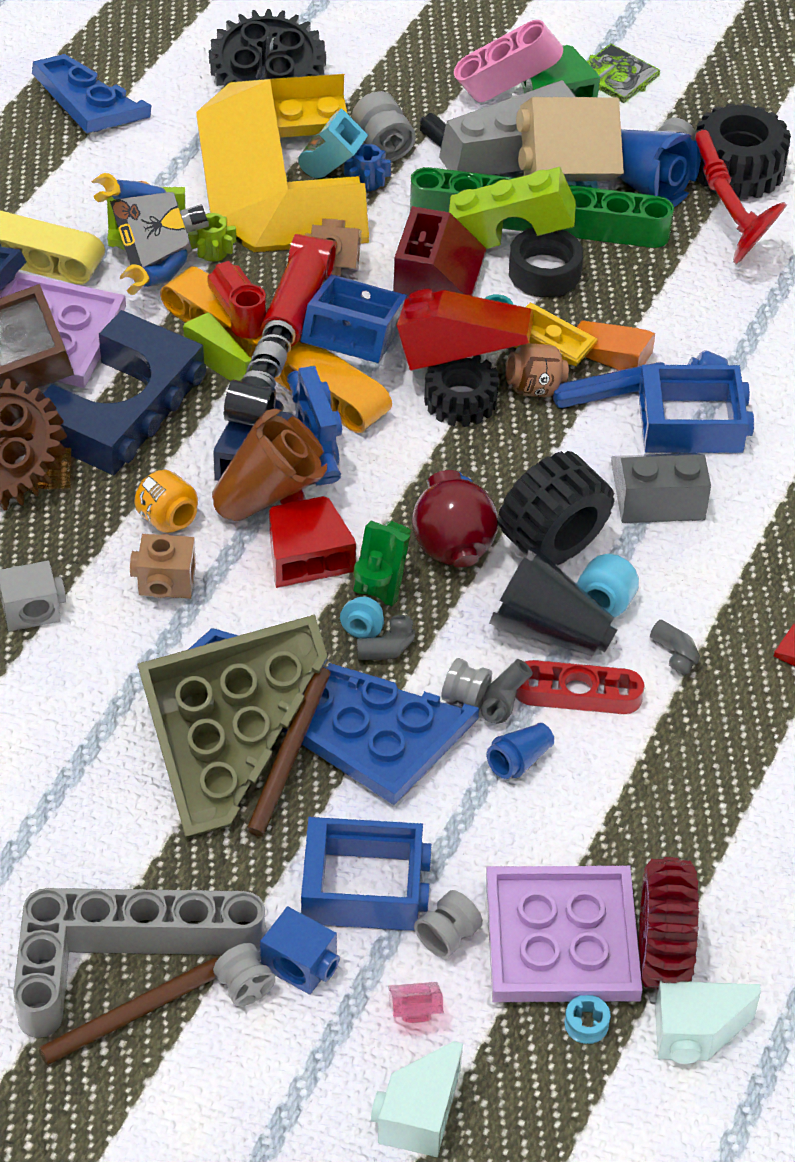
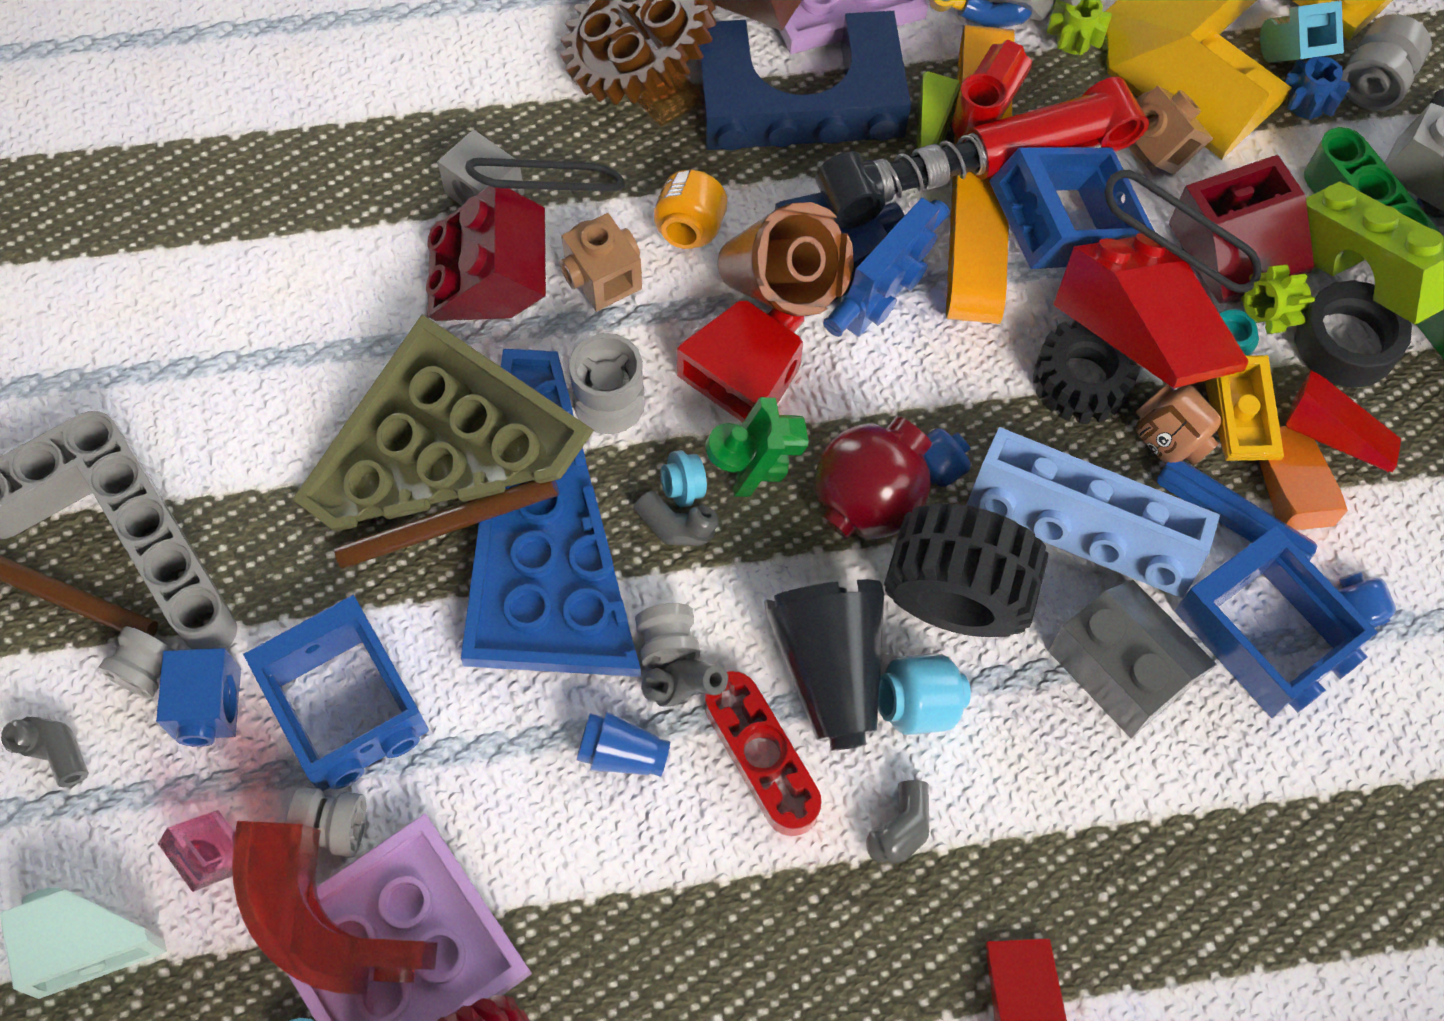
camera: 55 degrees right, 15 degrees up
(55, 574) = (514, 184): none -> black piece
(98, 629) = (487, 258): none -> dark red slope
(258, 1059) = (47, 741): none -> dark grey arm
(262, 602) = (607, 383): none -> light grey wheel
(379, 283) = (1191, 213): none -> black piece
(496, 264) = (1278, 299): none -> lime gear
(517, 954) = (284, 915): none -> clear red arch
(587, 425) = (1095, 512): none -> light blue brick
(592, 305) = (1339, 422): none -> red slope

